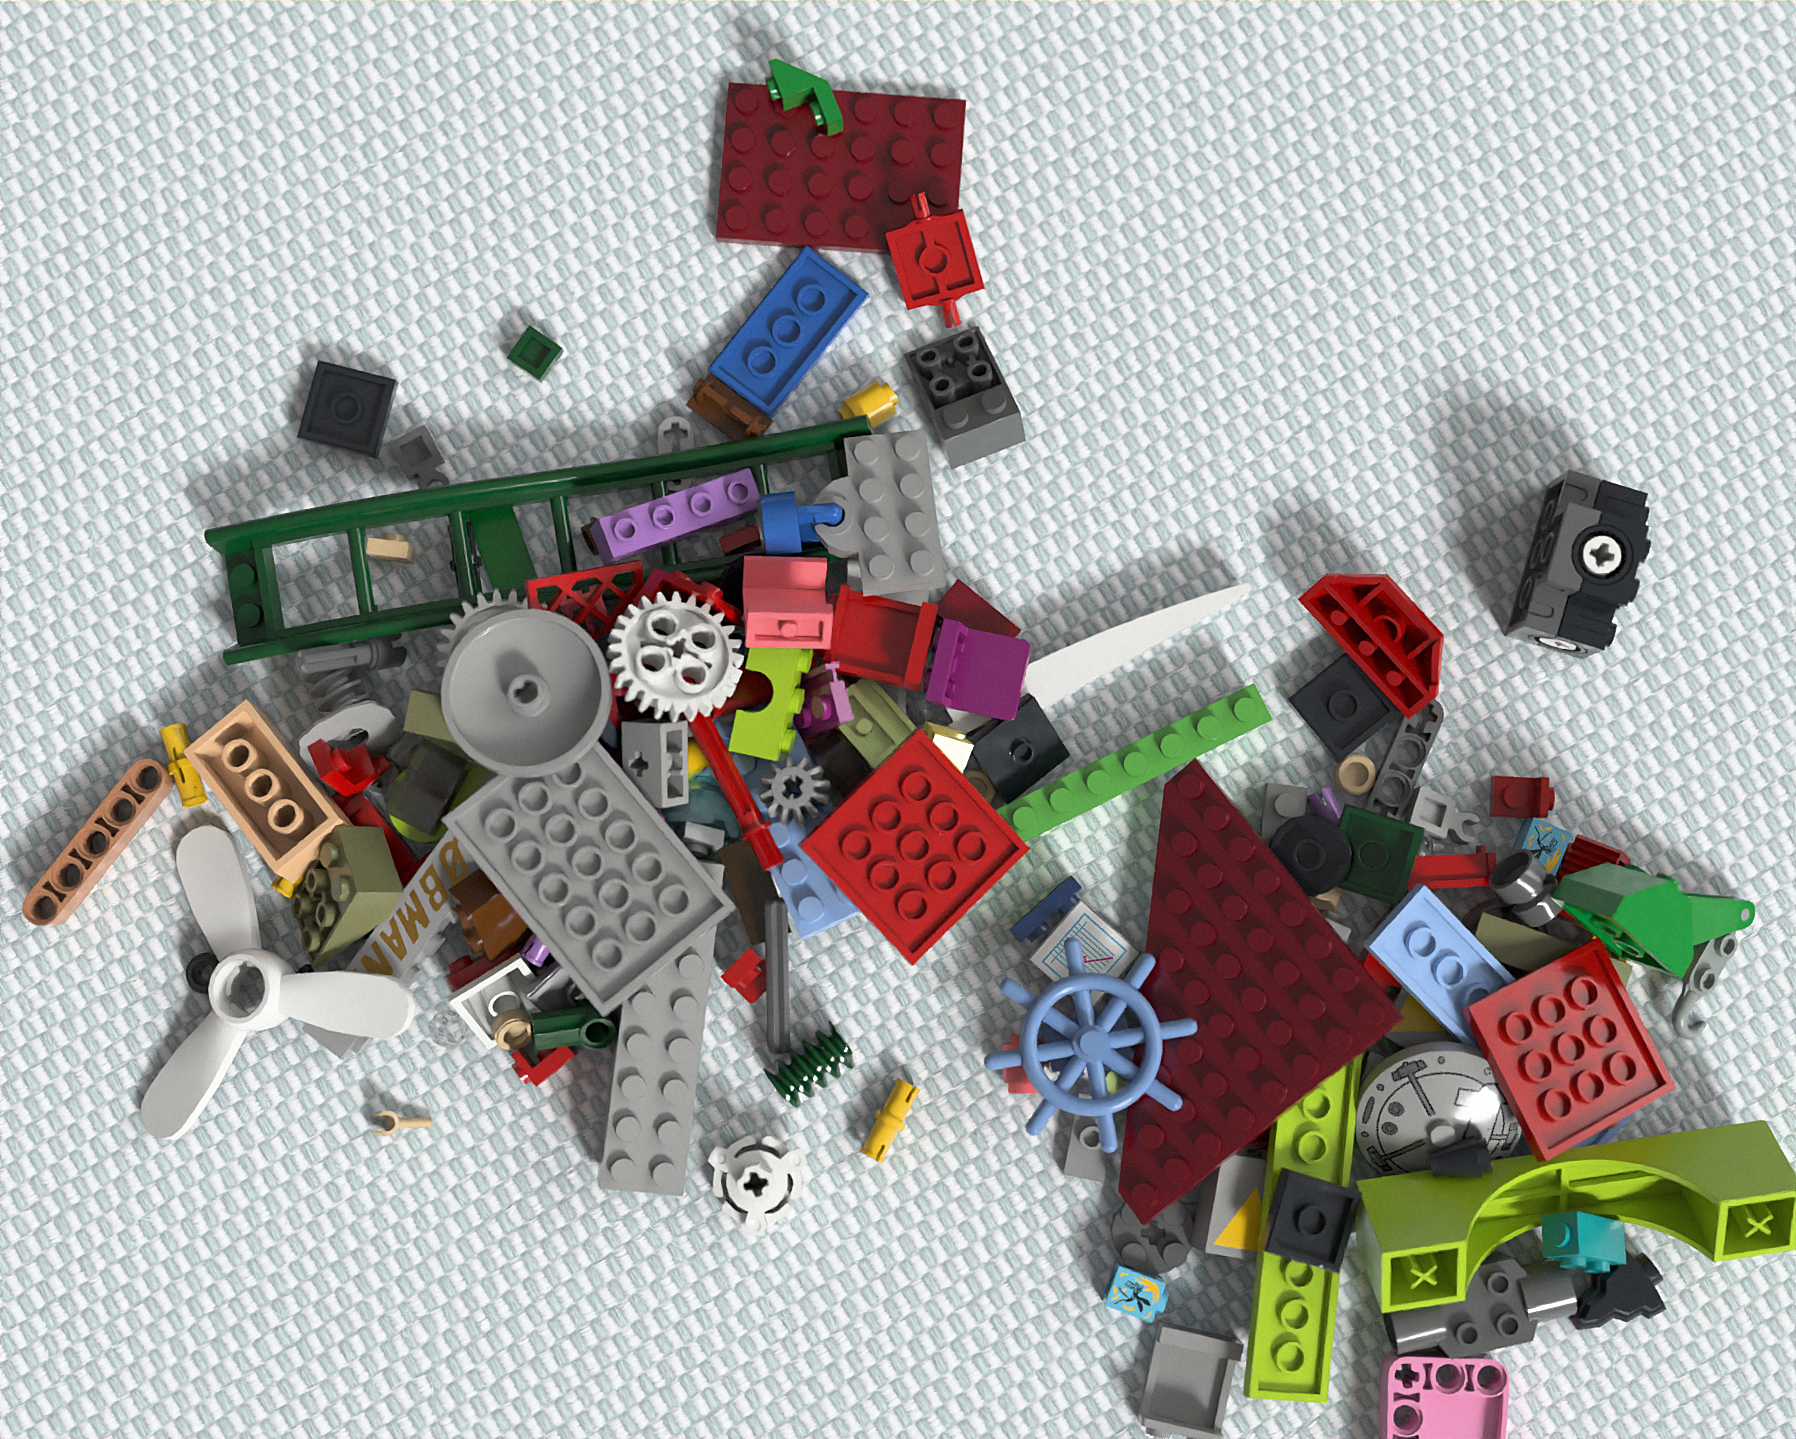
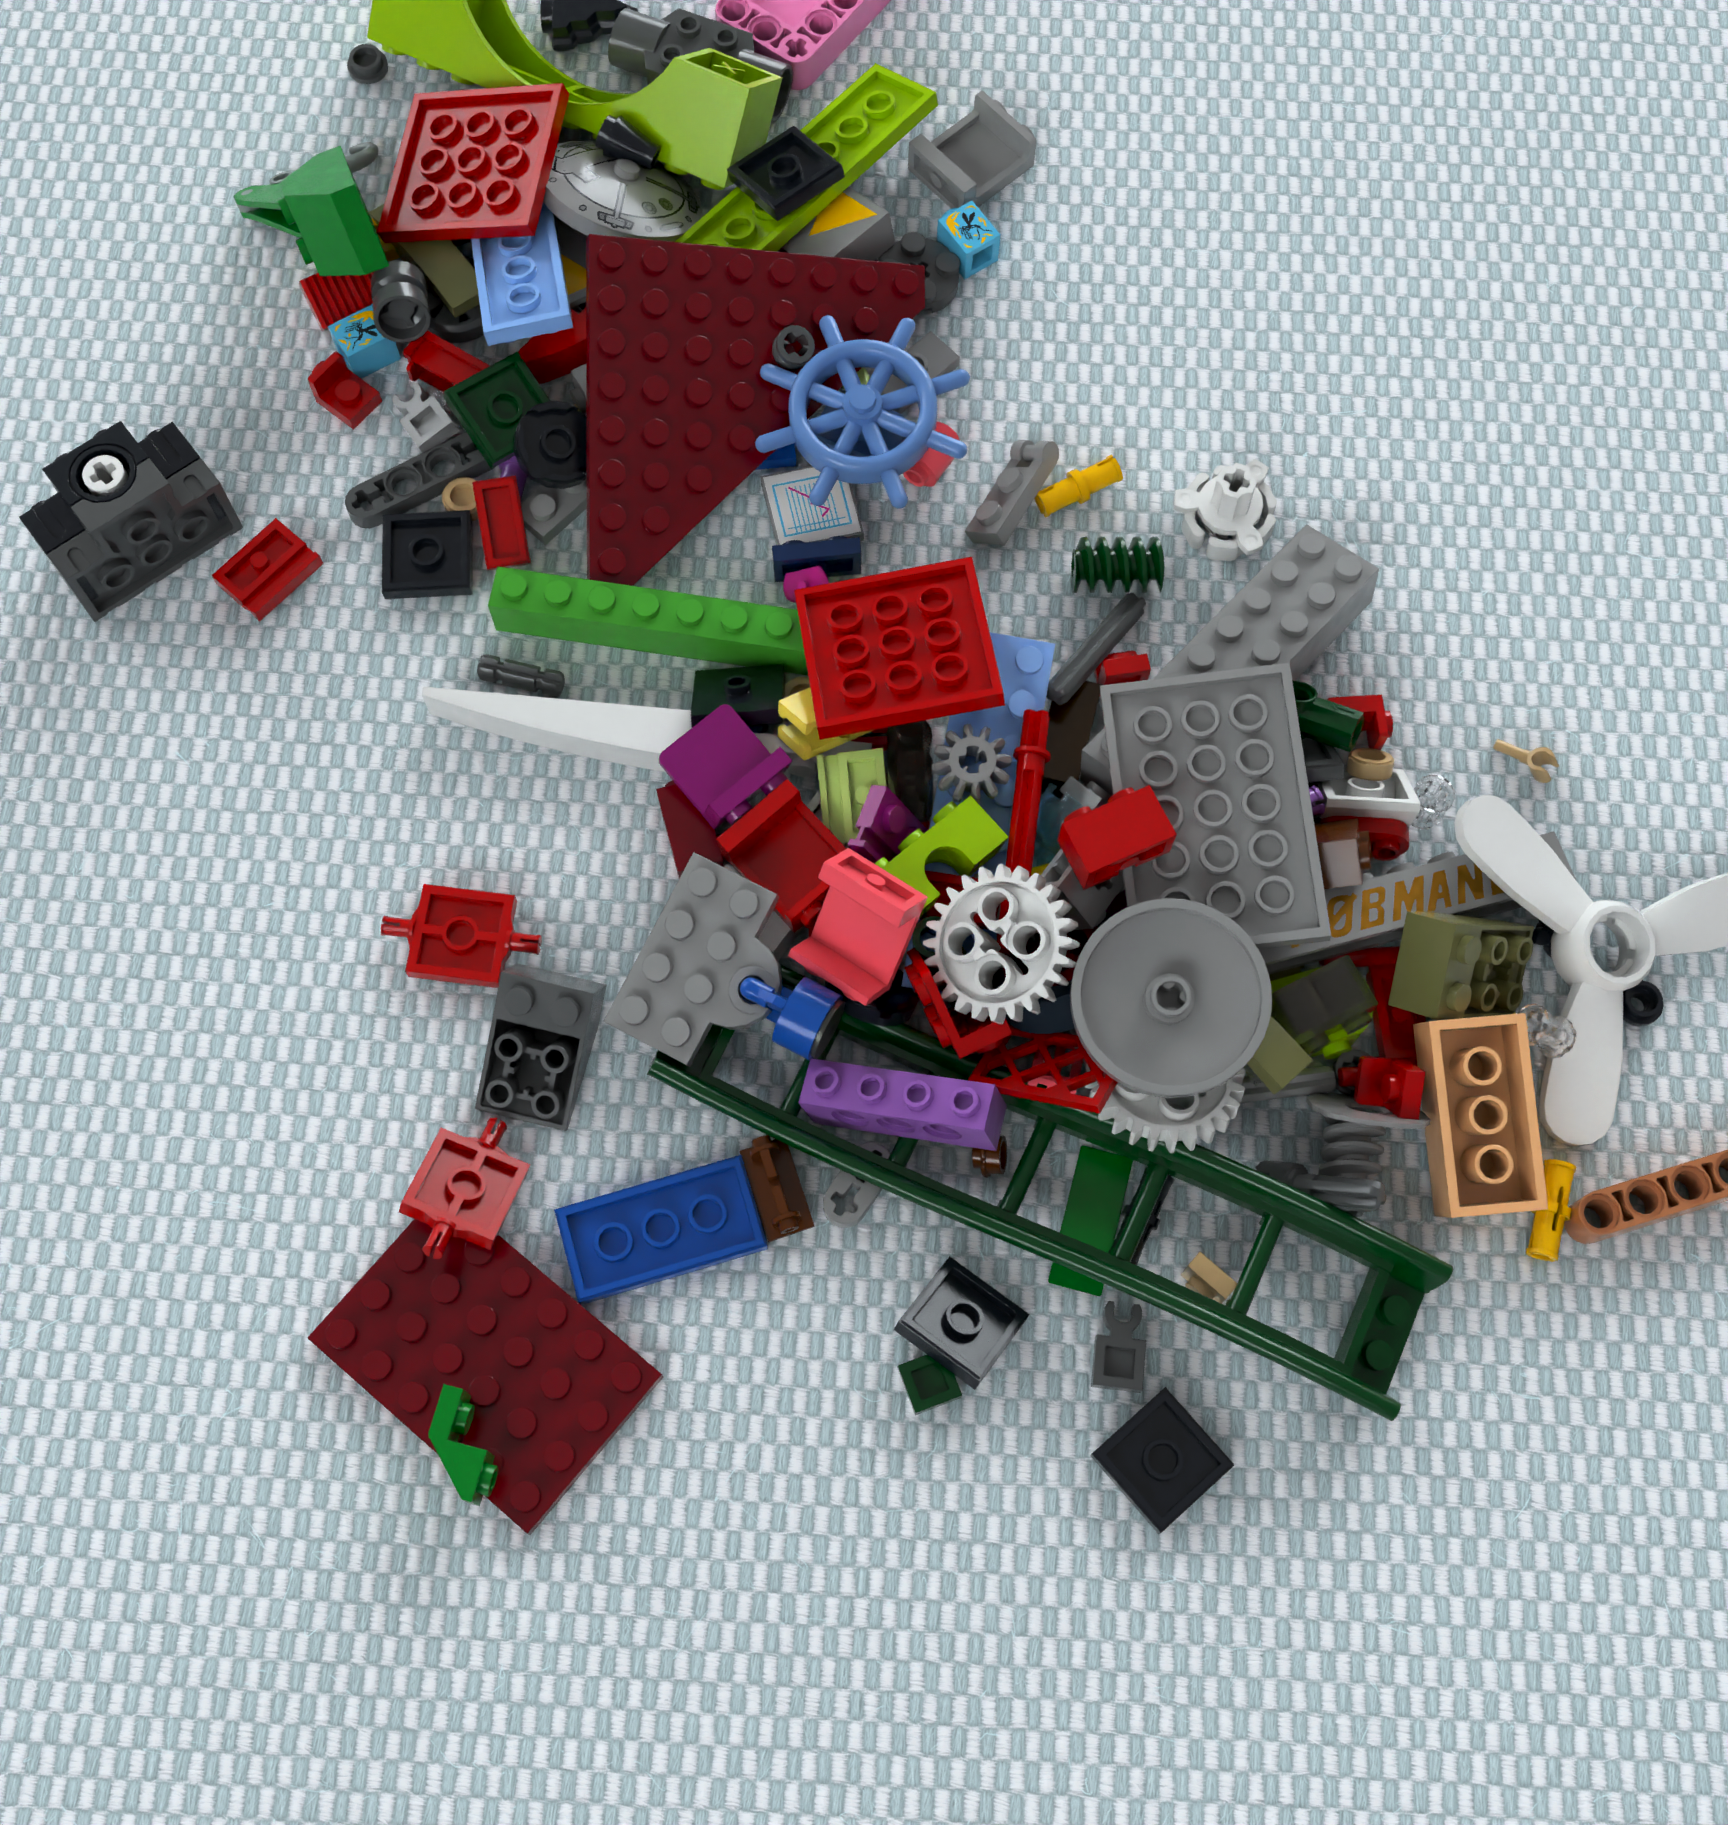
camera: 140 degrees left, 15 degrees down
(254, 891) = (1550, 1033): none -> clear bush
(539, 405) = (961, 1322): none -> black plate
(641, 783) = (1115, 835): none -> red brick
(741, 540) = (855, 1051): red tile -> none
(873, 400) = (638, 1096): yellow brick -> none
(936, 1077) = (1013, 491): none -> light grey plate
(1037, 882) = (802, 579): none -> dark pink piece
(1081, 434) = (461, 935): none -> red plate
(1178, 1047) = (792, 334): none -> dark grey bush
(1196, 660) = (521, 675): none -> dark grey axle
(1306, 768) = (501, 522): none -> red tile
(1381, 634) = (345, 570): red wedge -> none
(1455, 605) = (267, 569): none -> red plate
(1583, 1241) = (581, 47): teal brick -> none
(1756, 1107) = (367, 64): none -> dark grey plate

